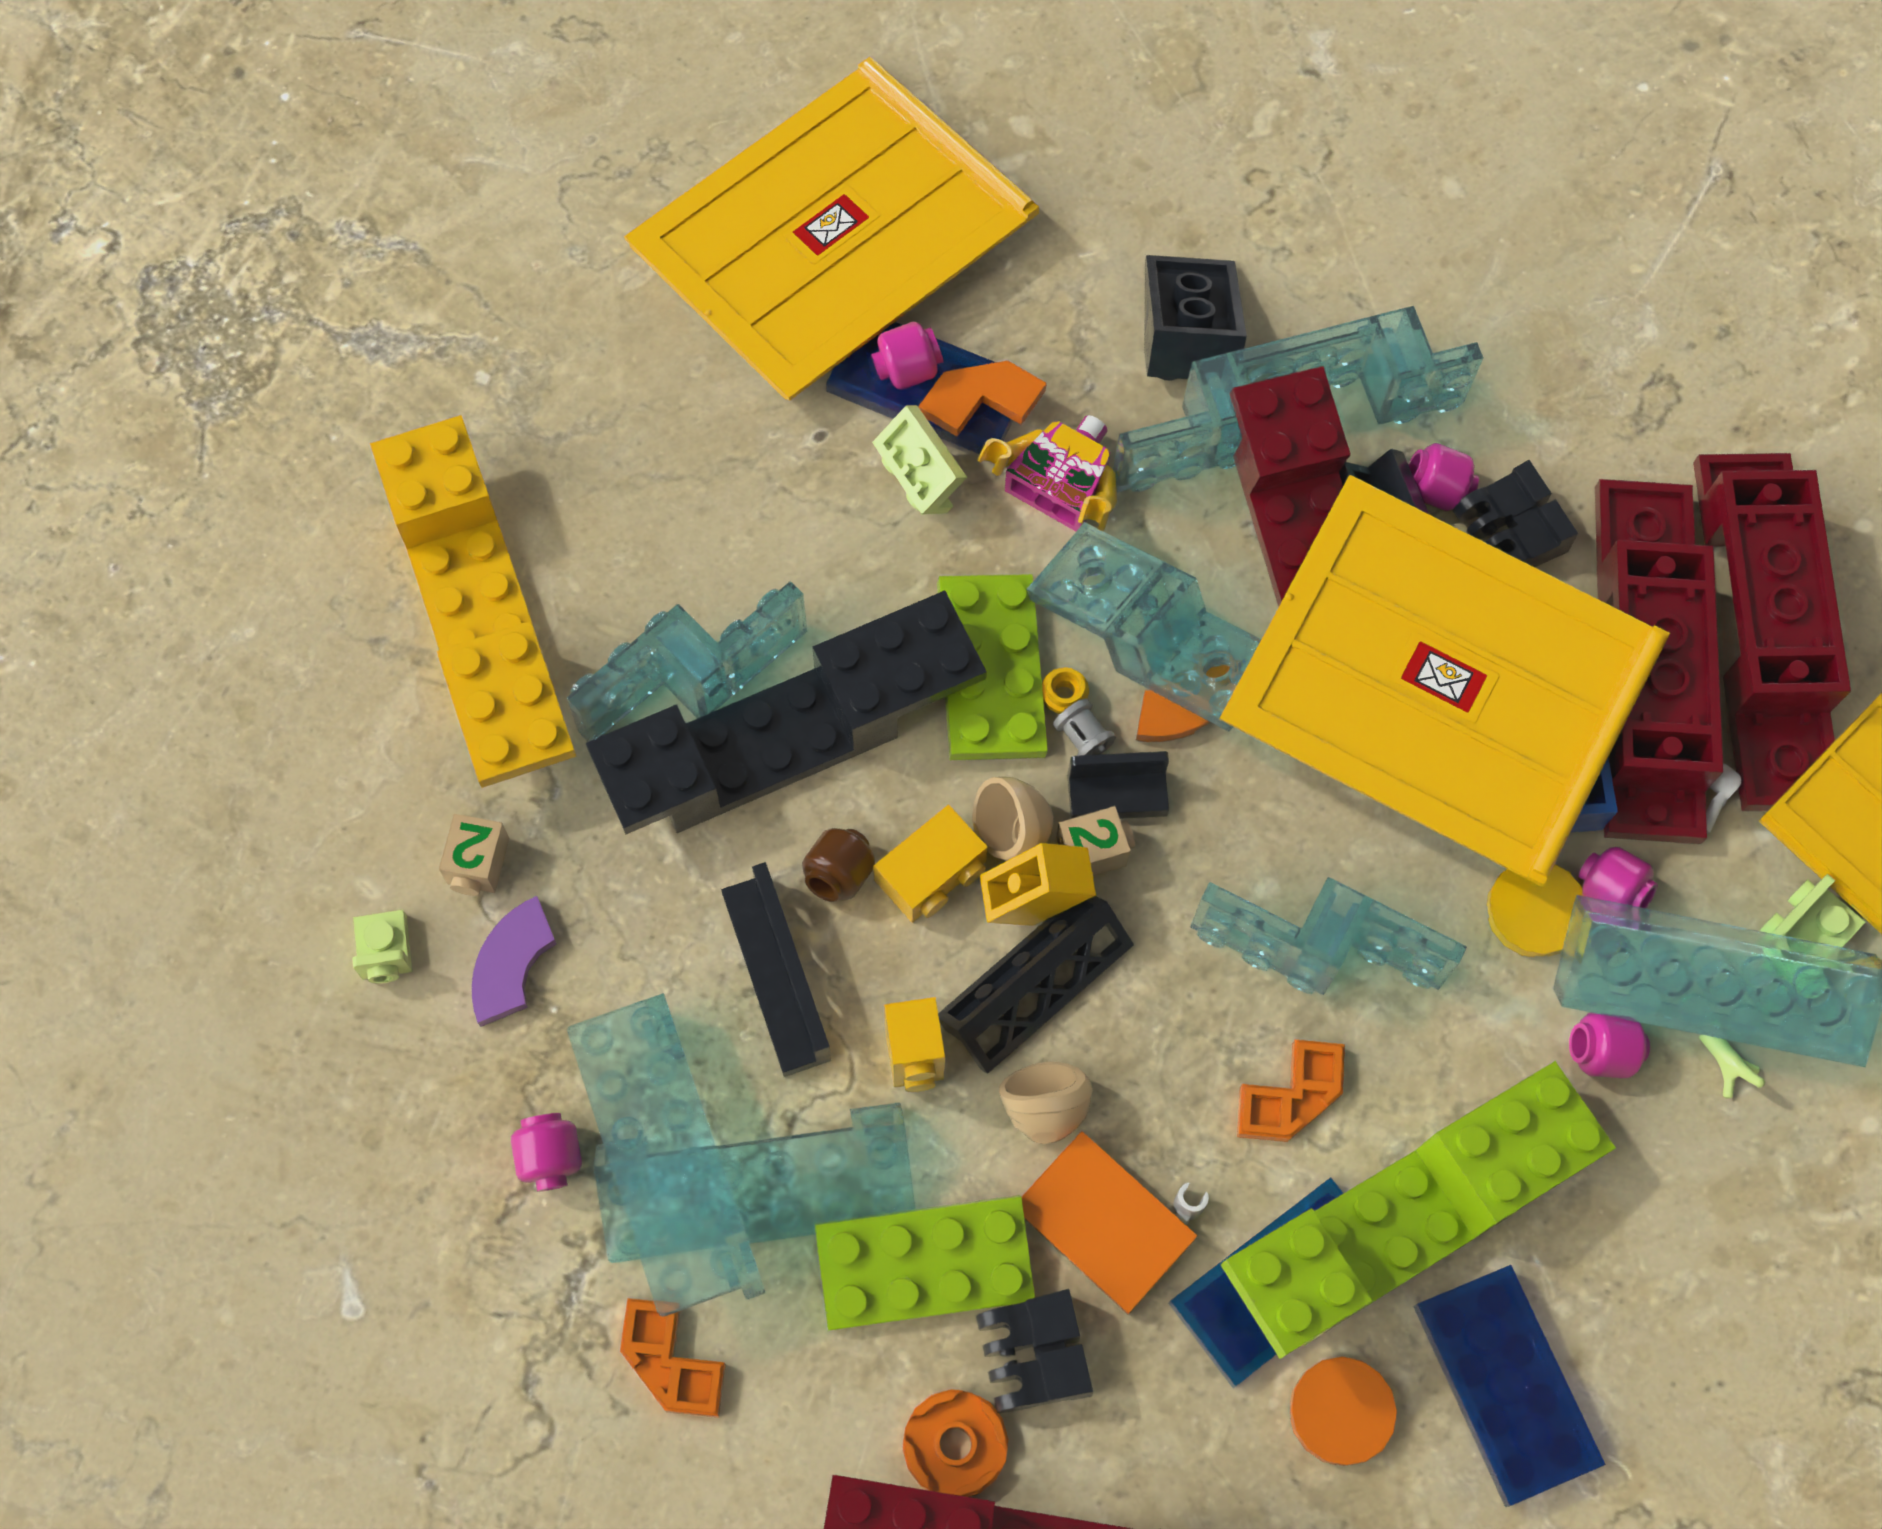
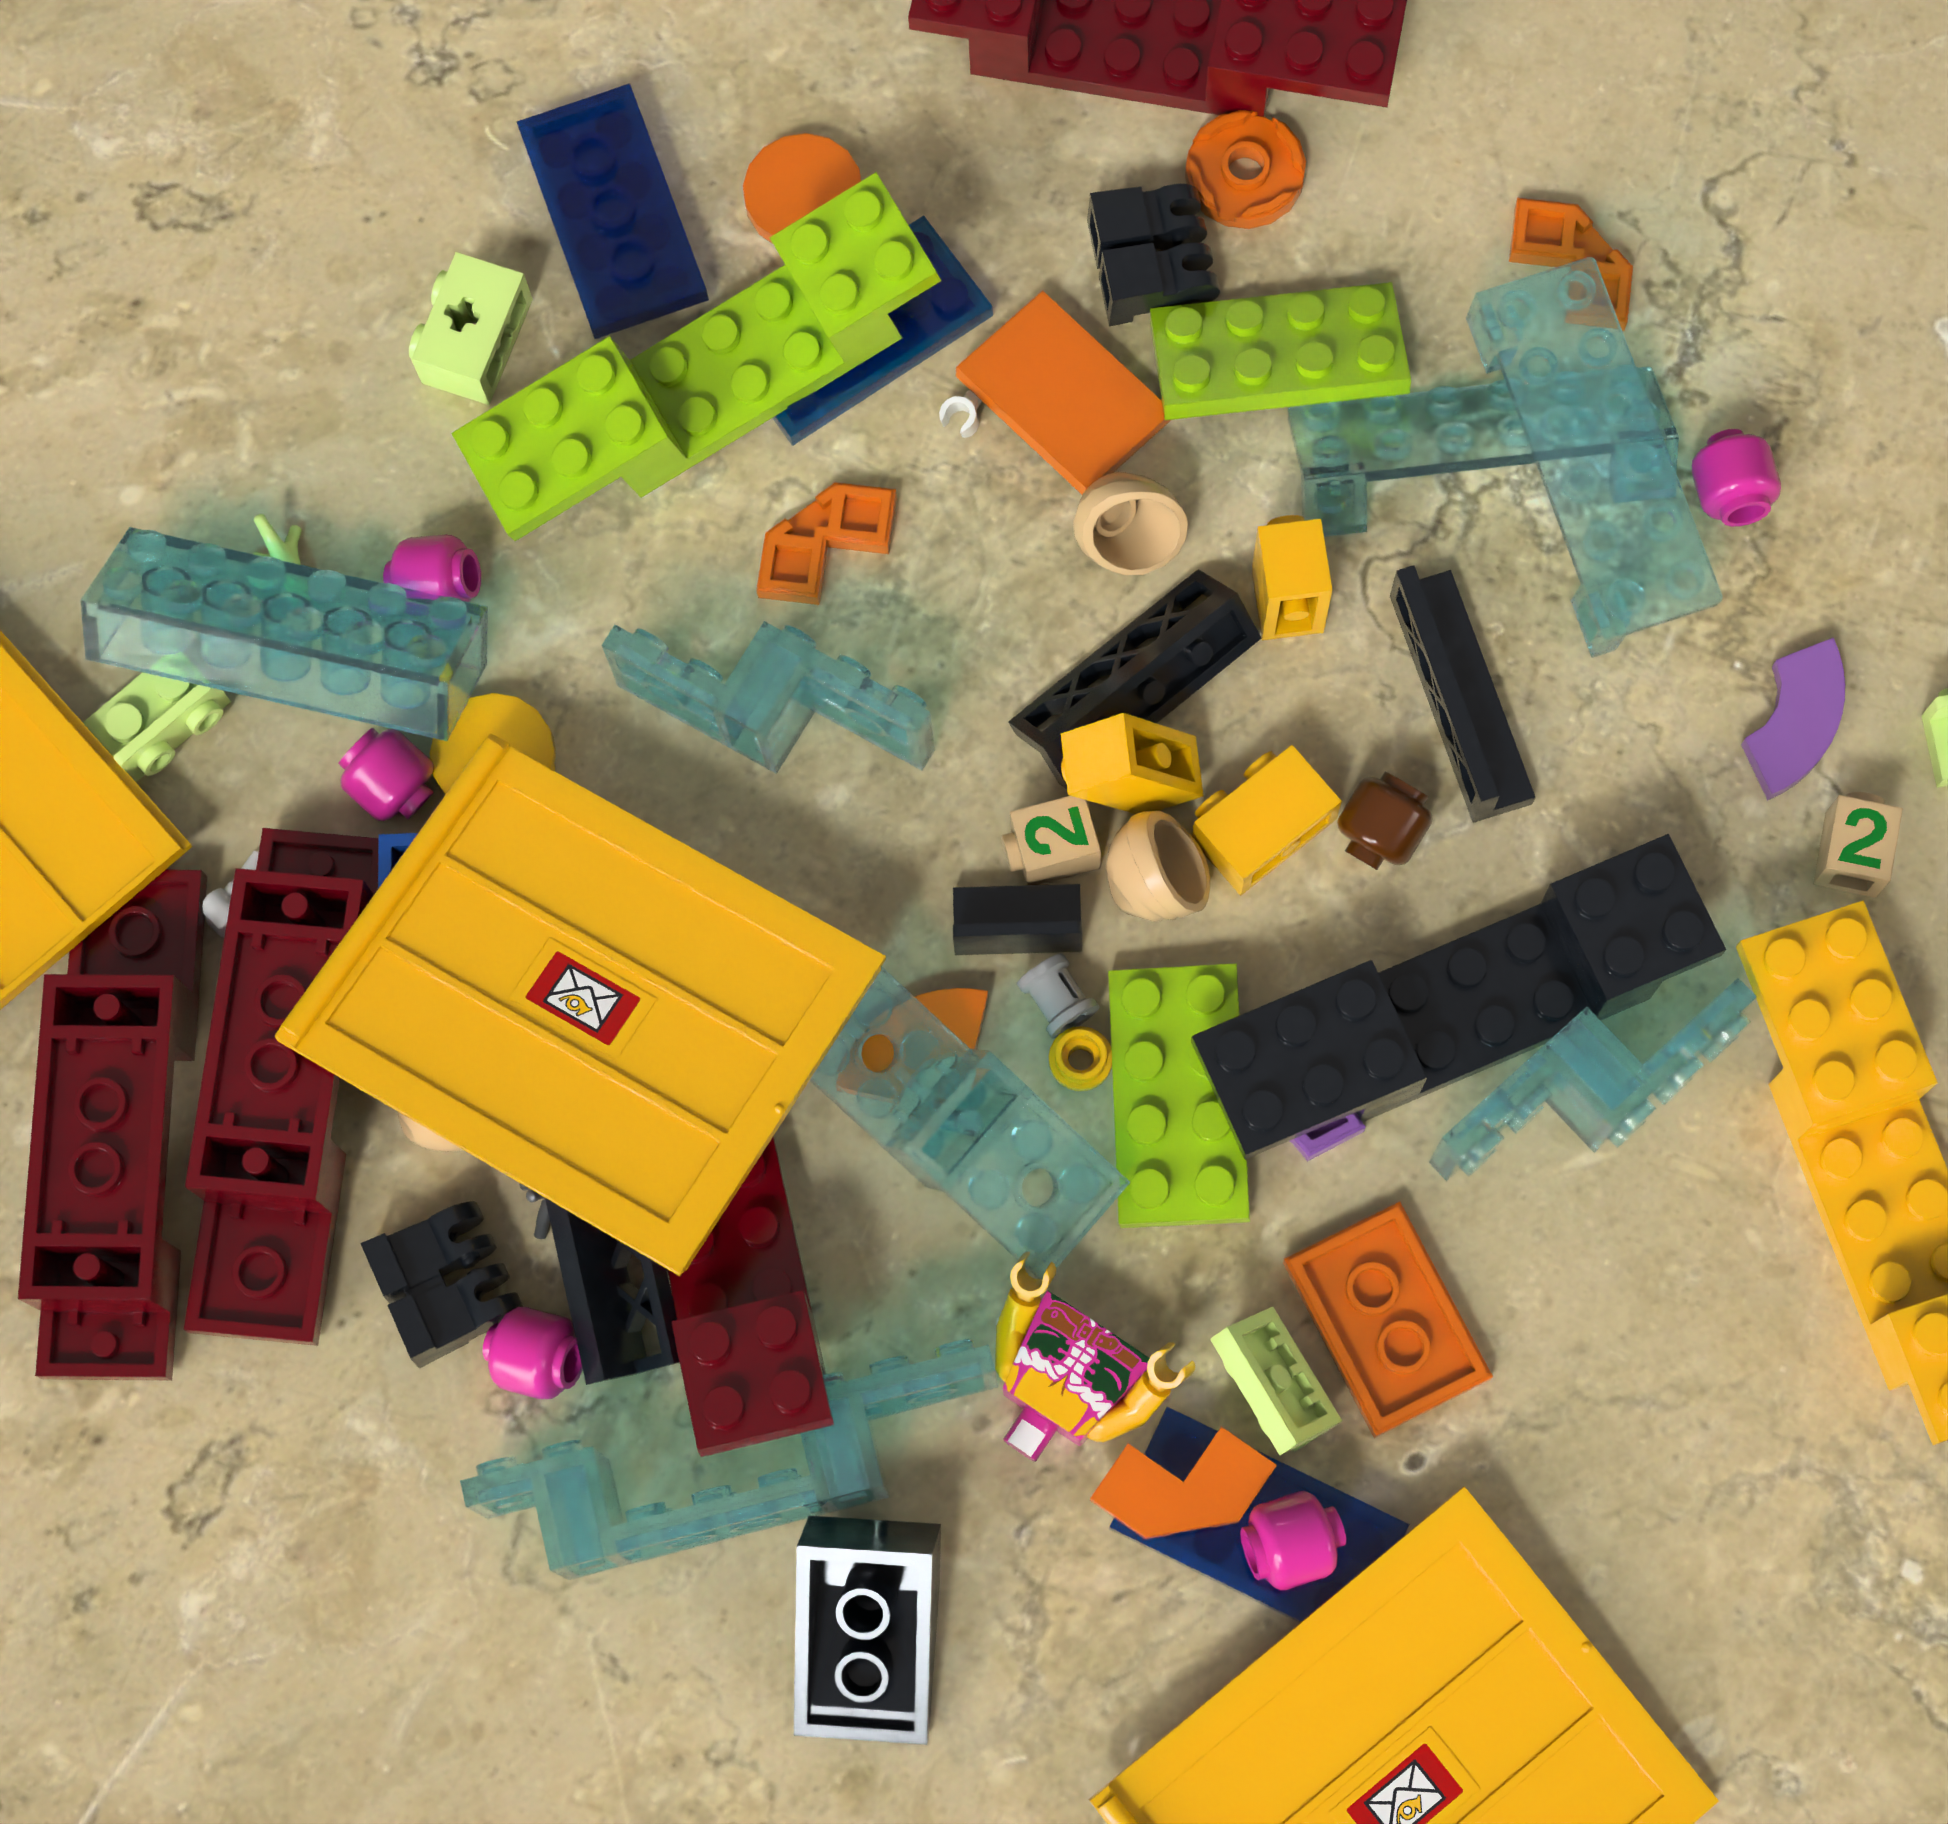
camera: 170 degrees left, 5 degrees up
(839, 522) = (1387, 1319): none -> orange tile
(1594, 1285) = (475, 358): none -> yellowish green brick

